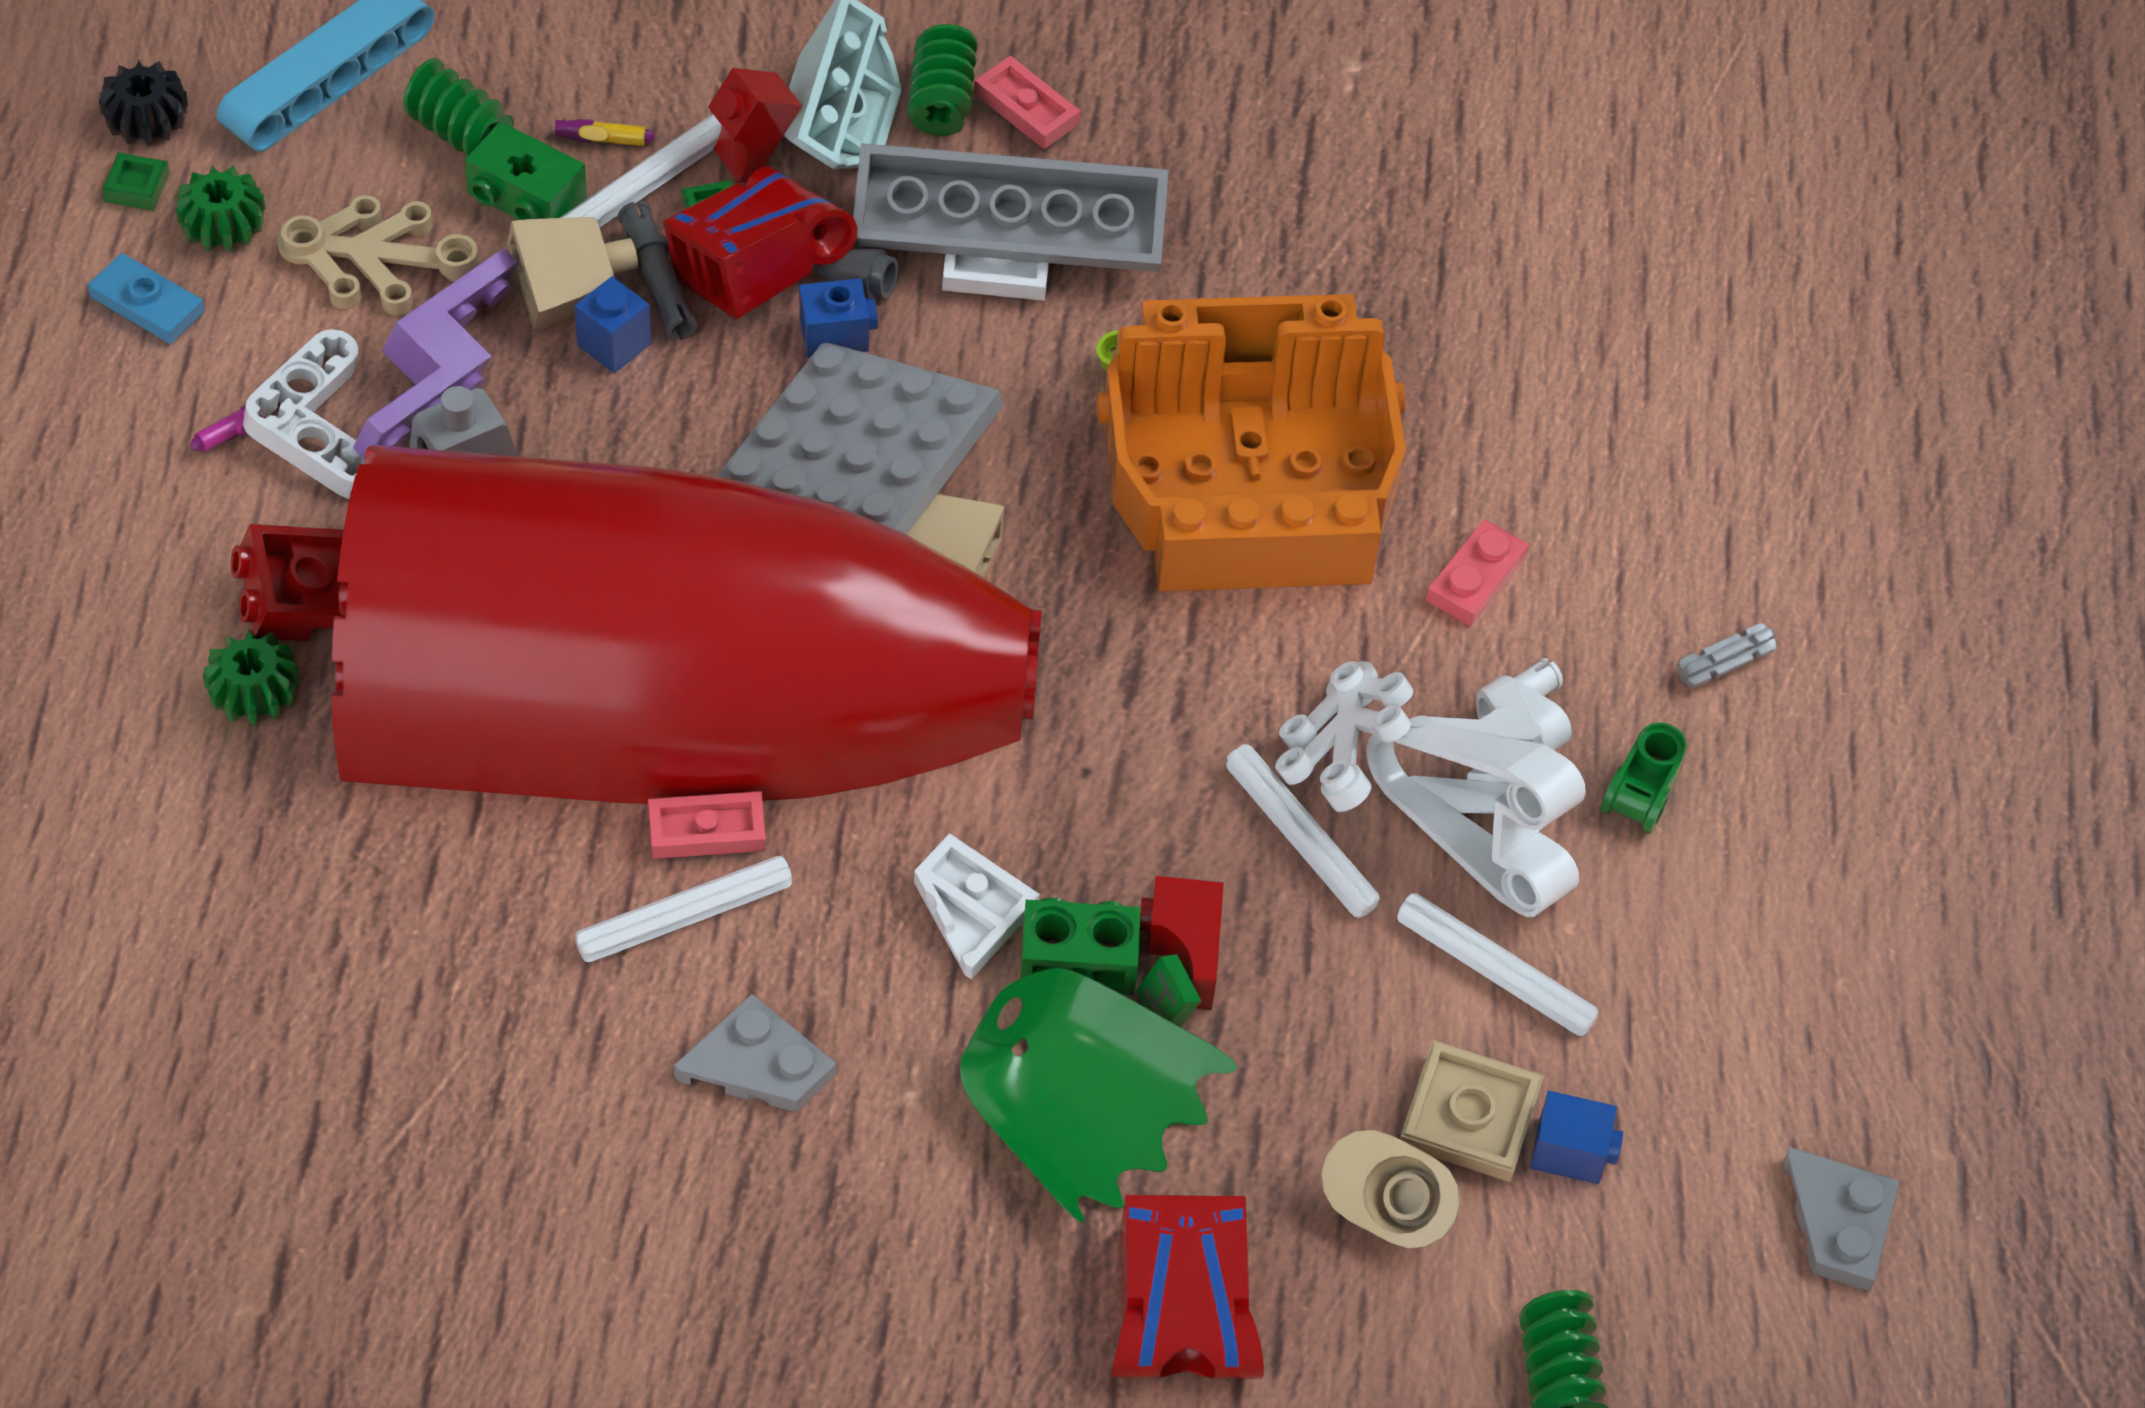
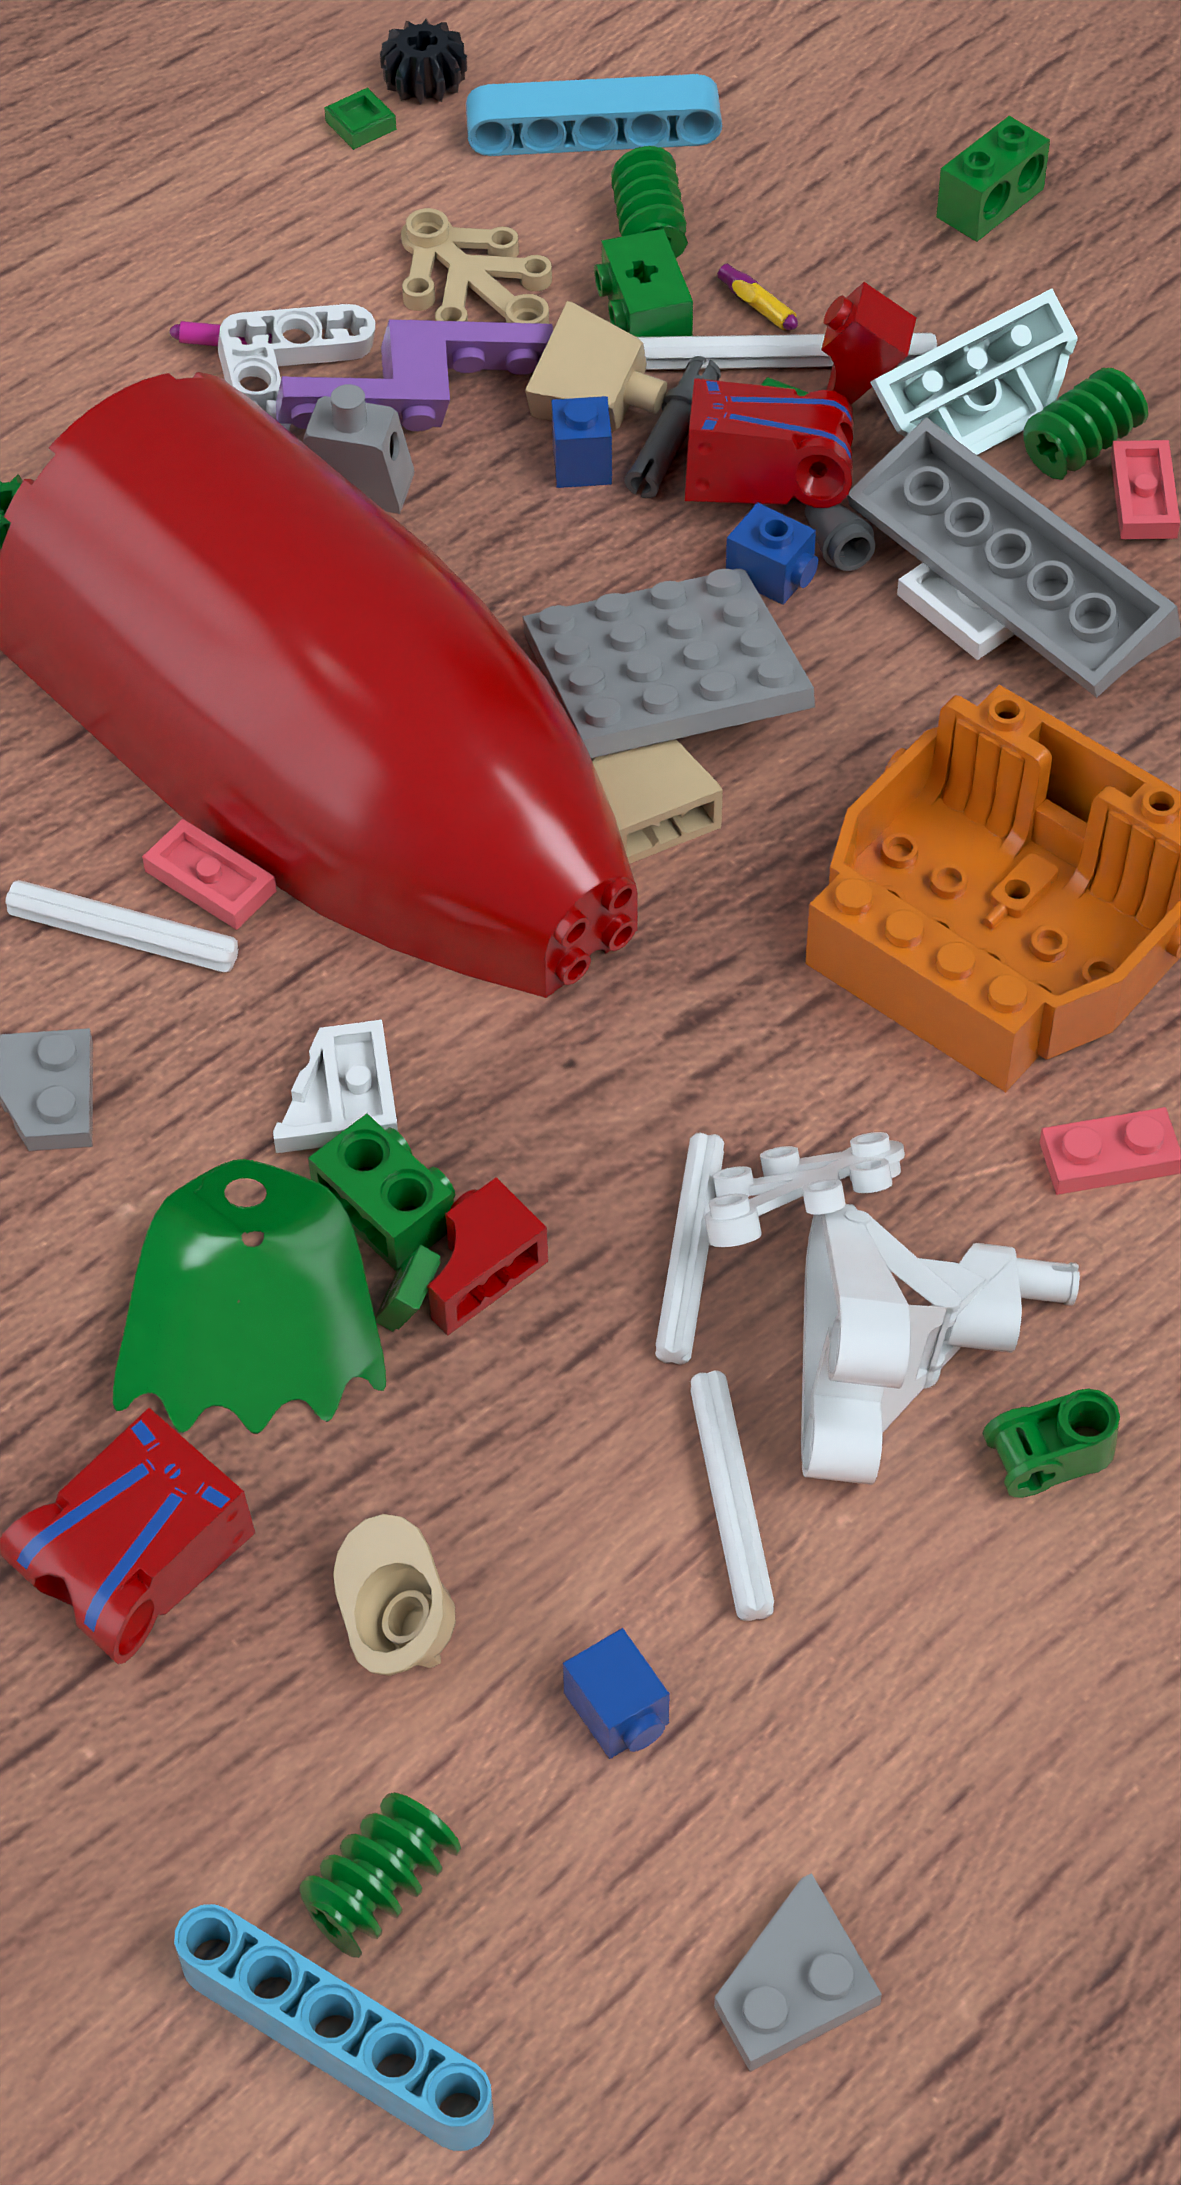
camera: 50 degrees right, 0 degrees up
(146, 298) = (268, 205): dark azure plate -> none
(220, 208) = (389, 170): green gear -> none
(1471, 1110) = (555, 1594): tan plate -> none

